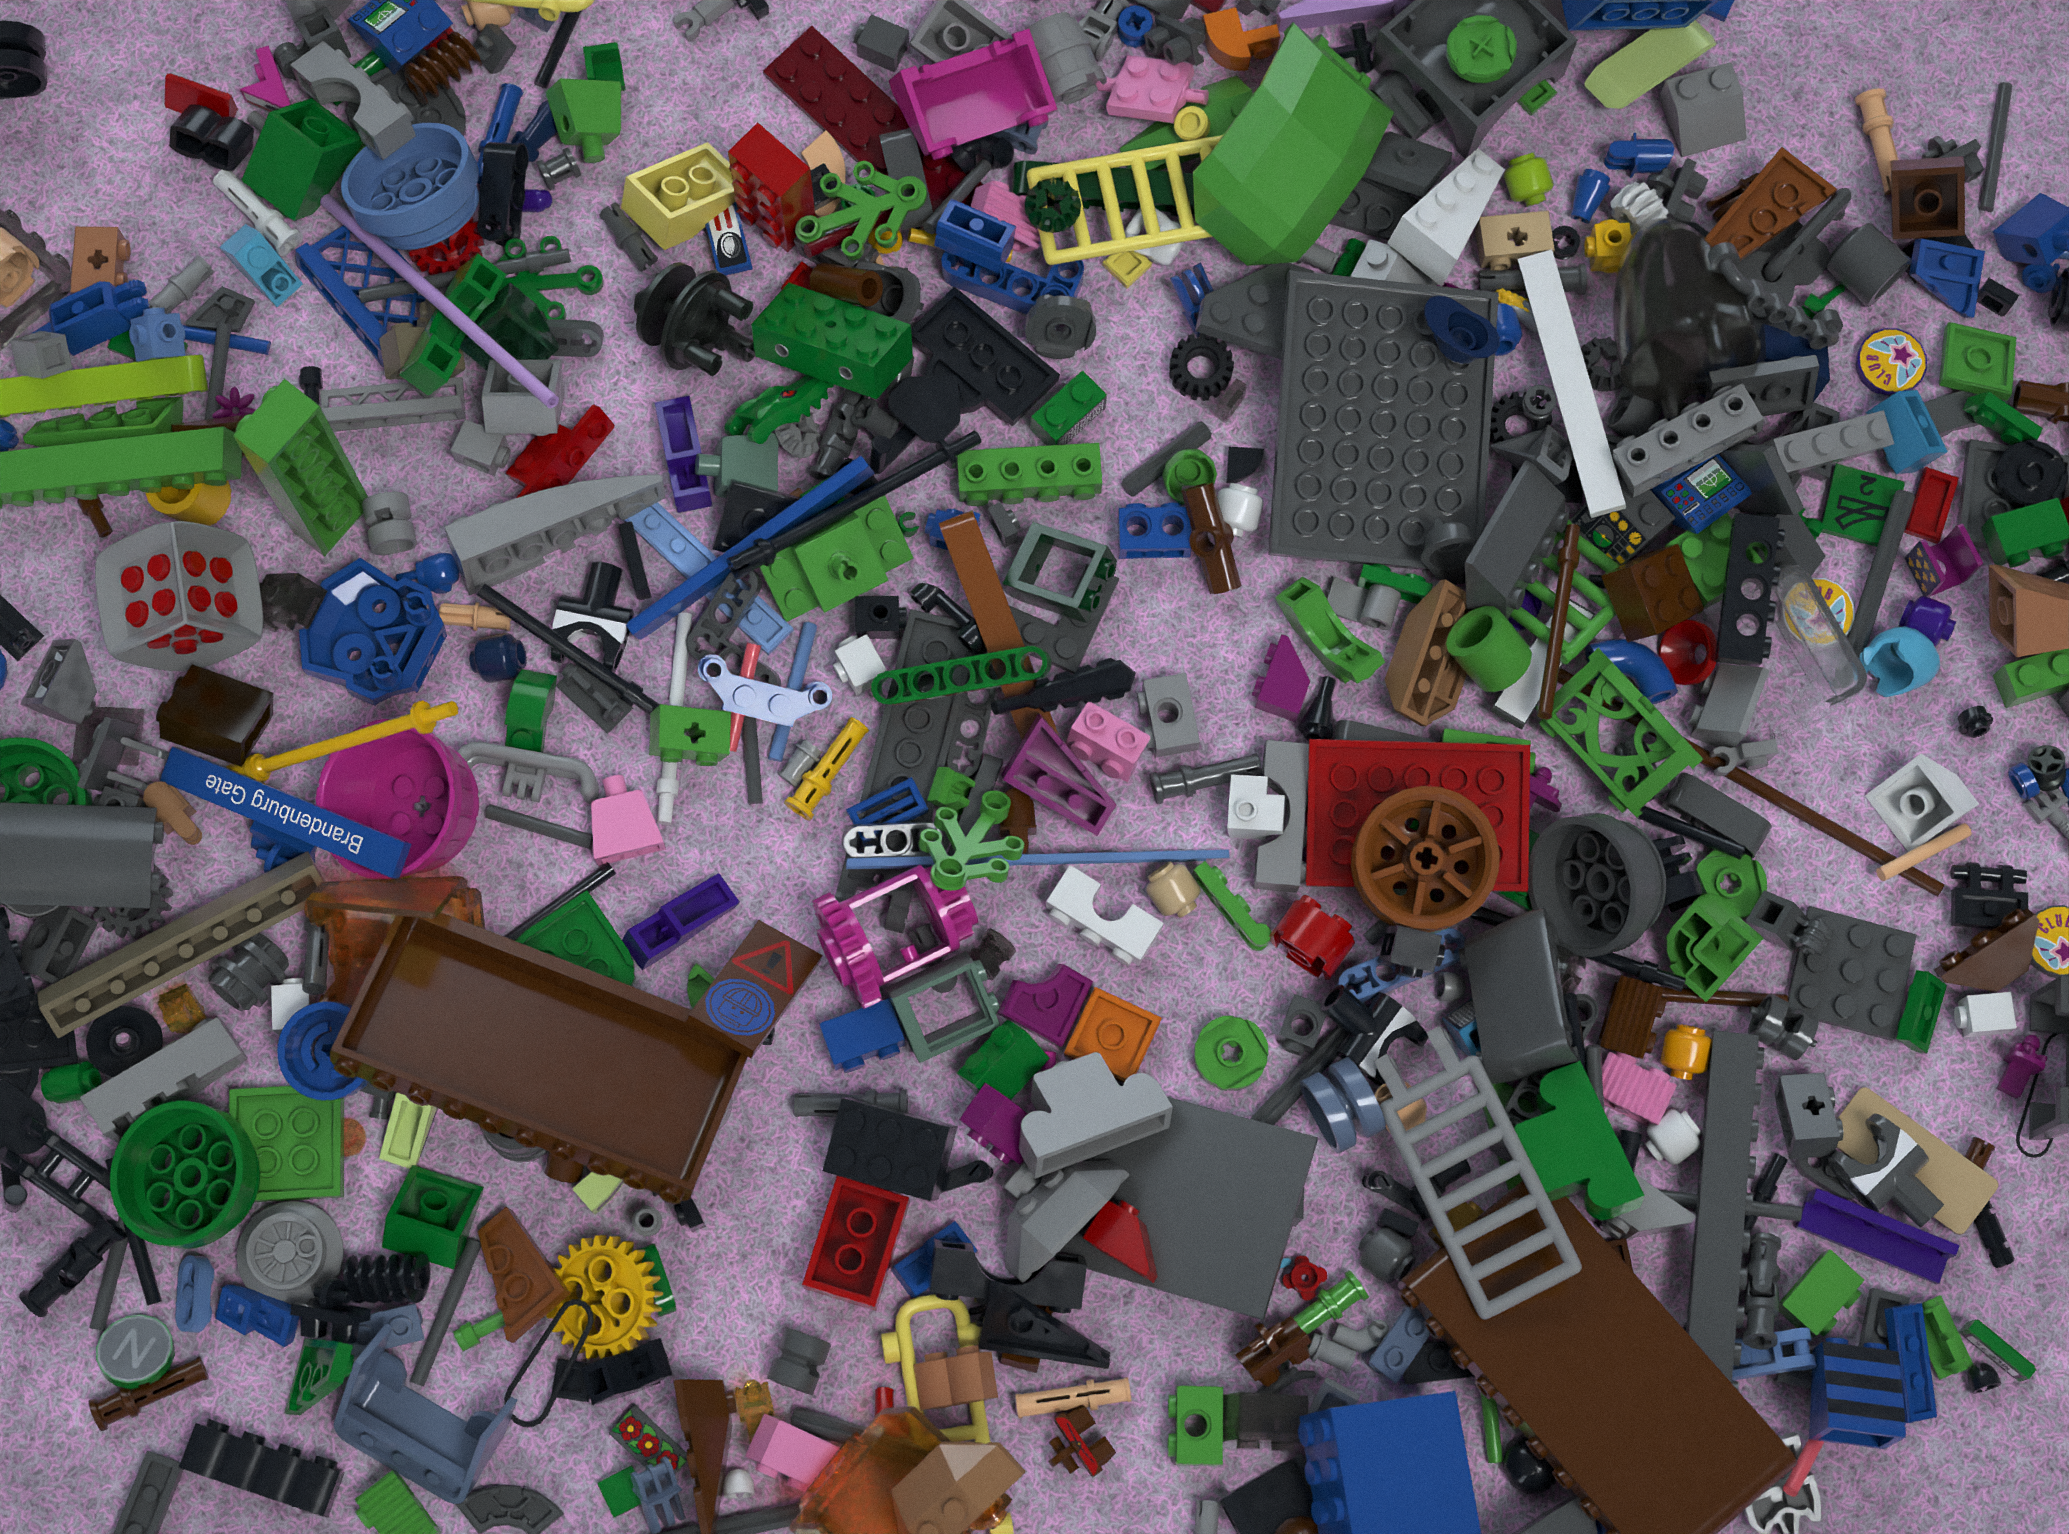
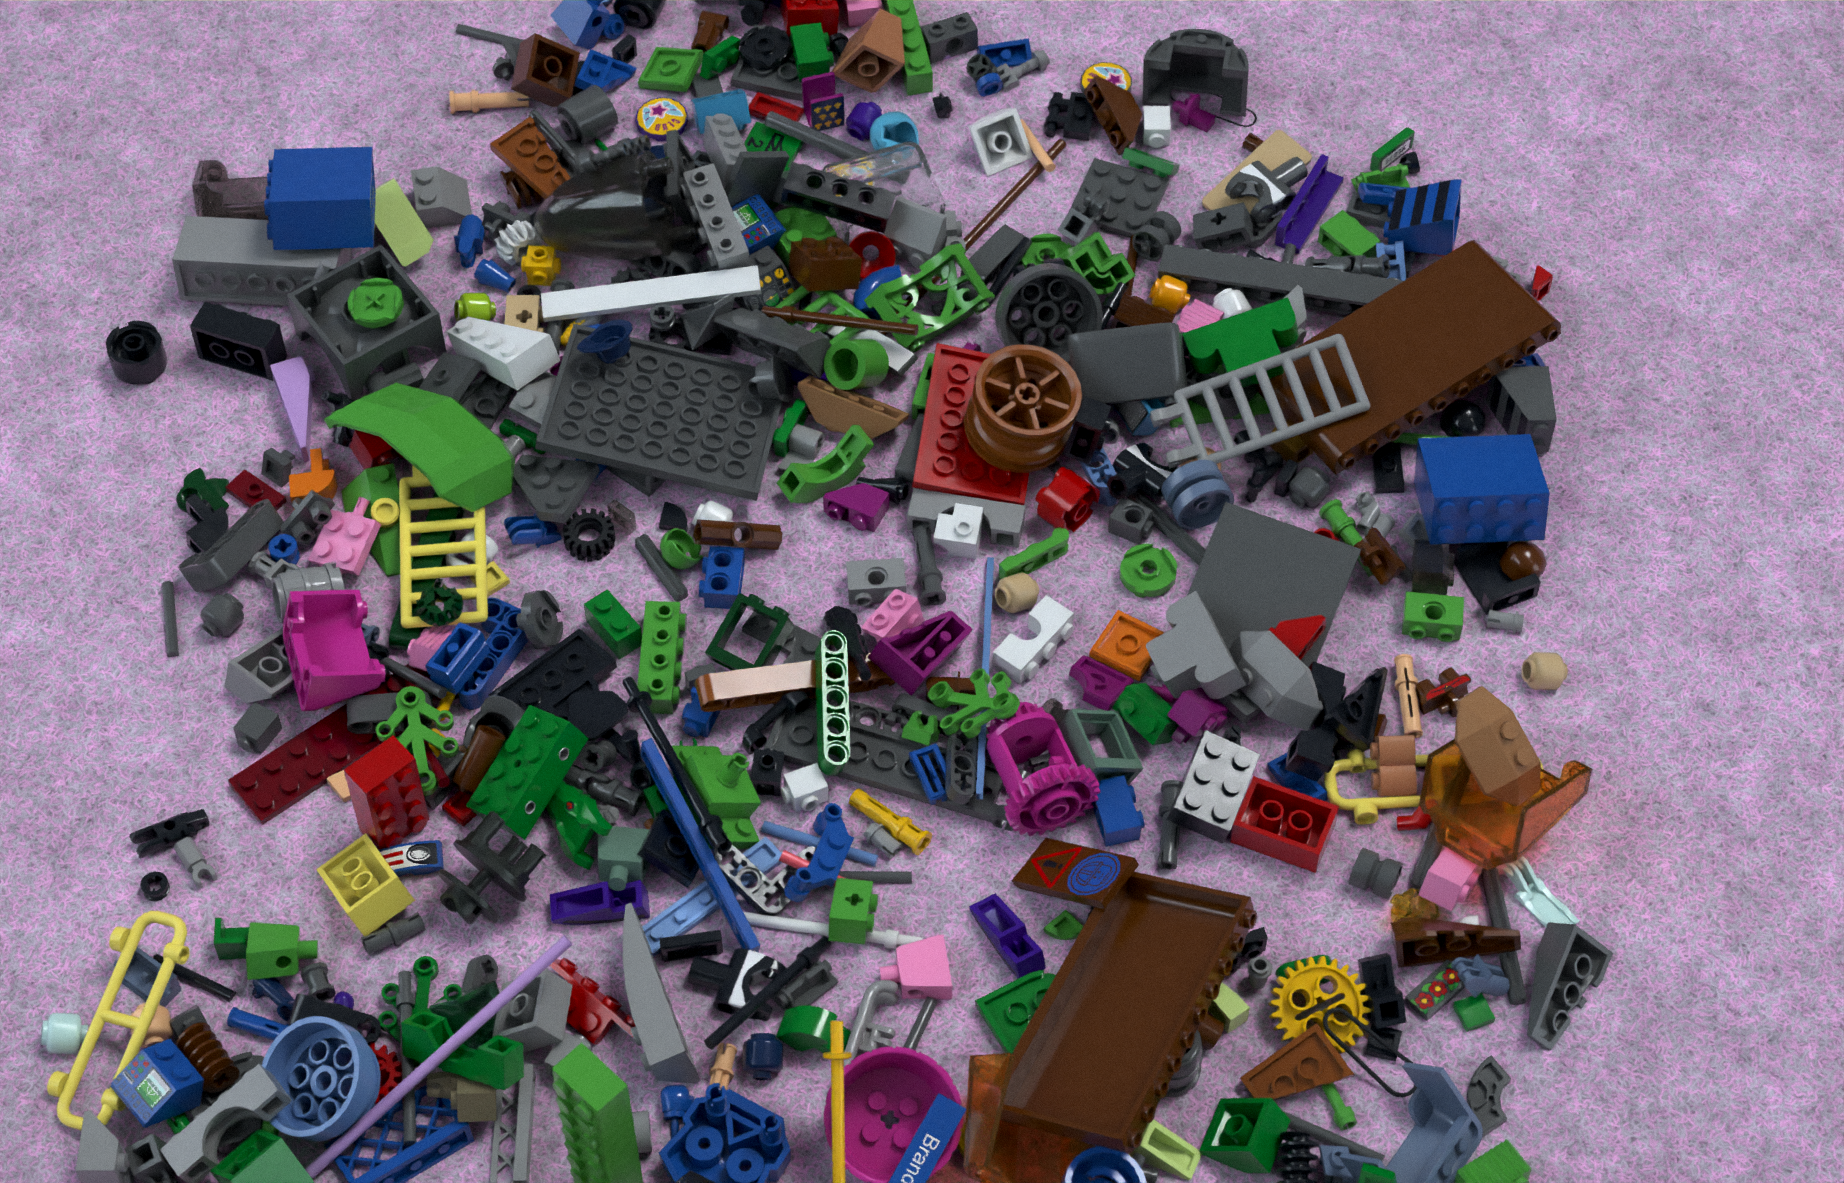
camera: 80 degrees left, 20 degrees down
(589, 883) = (977, 1019): black bar -> none
(1400, 1345) = (1364, 478): sand blue hinge -> none
(1993, 1237) = (1314, 145): black axle -> none

